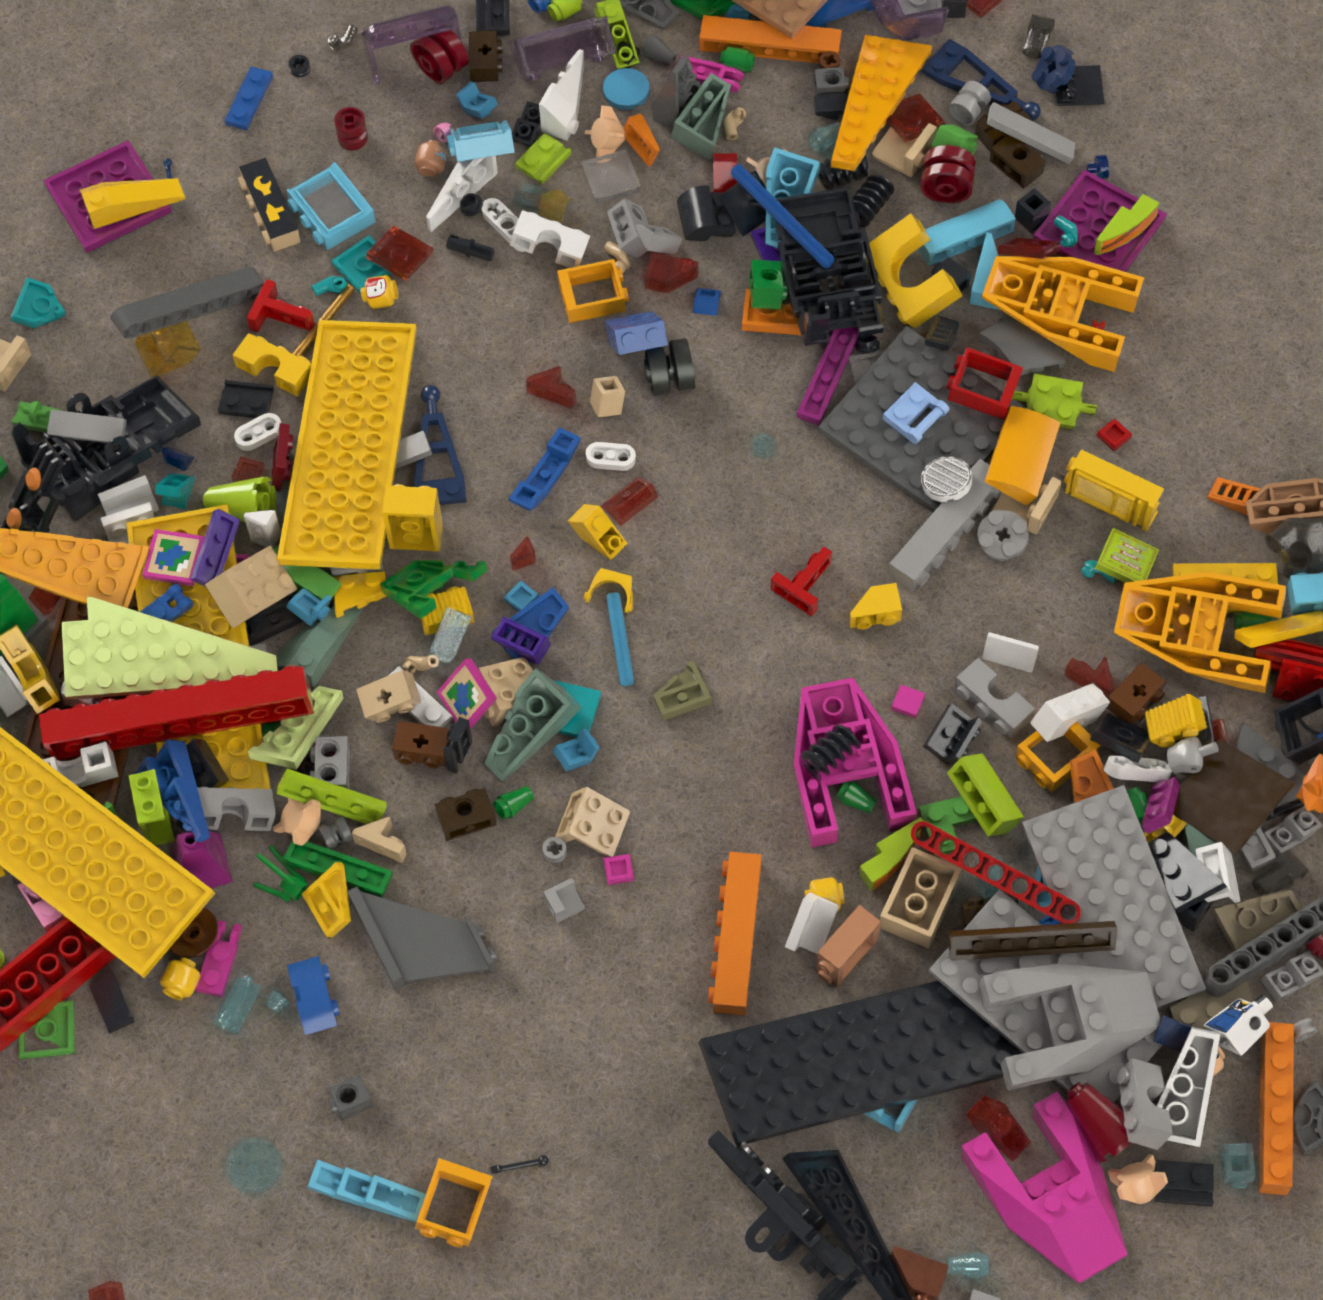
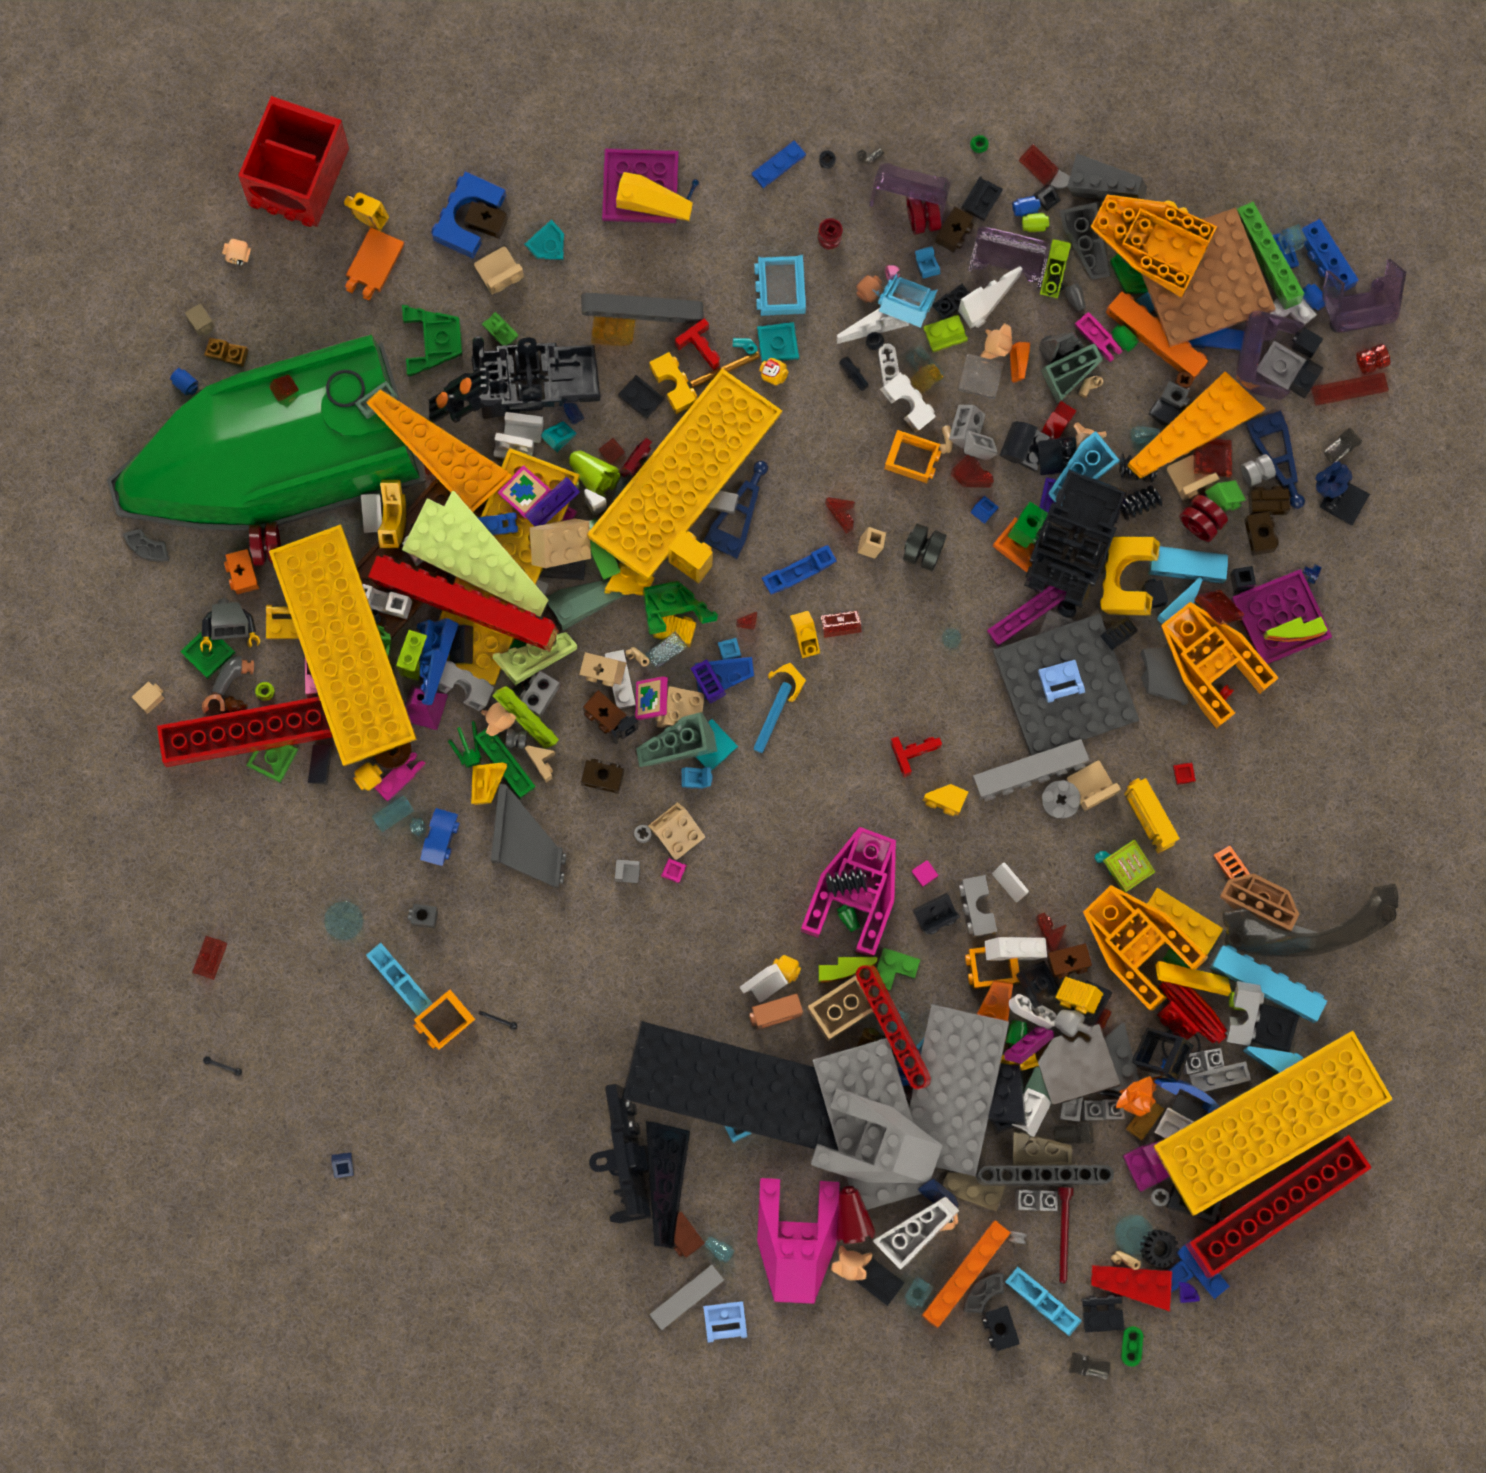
camera: 25 degrees right, 15 degrees up
(85, 426) = (522, 363): light grey tile -> none
(257, 431) = (634, 426): white plate -> none
(269, 205) = (742, 258): black brick -> none
(309, 607) = (590, 575): dark azure bracket -> none
(399, 253) = (805, 349): clear red tile -> none
(512, 802) = (636, 786): green cone -> none
(611, 454) = (848, 585): white plate -> none
(626, 88) = (1035, 313): dark azure tile -> none
(636, 332) = (915, 511): brick -> none
(682, 693) = (787, 780): olive wing -> none
(736, 934) = (717, 959): orange brick -> none
(782, 216) = (1065, 486): blue axle -> none
(946, 479) = (1049, 740): tile -> none
(985, 795) = (928, 967): lime brick -> none
(991, 366) = (1131, 676): red window -> none
(1000, 1125) = (792, 1179): clear red slope -> none
(1022, 453) = (1111, 752): light orange slope -> none
(1031, 133) = (1281, 521): light grey tile -> none
(1032, 940) = (884, 1084): dark brown plate -> none
(1056, 399) = (1161, 725): lime plate -> none
(1070, 231) = (1254, 614): teal arm -> none
(1139, 1087) = (873, 1235): light grey arch -> none
(1241, 1024) = (978, 1211): white torso -> none

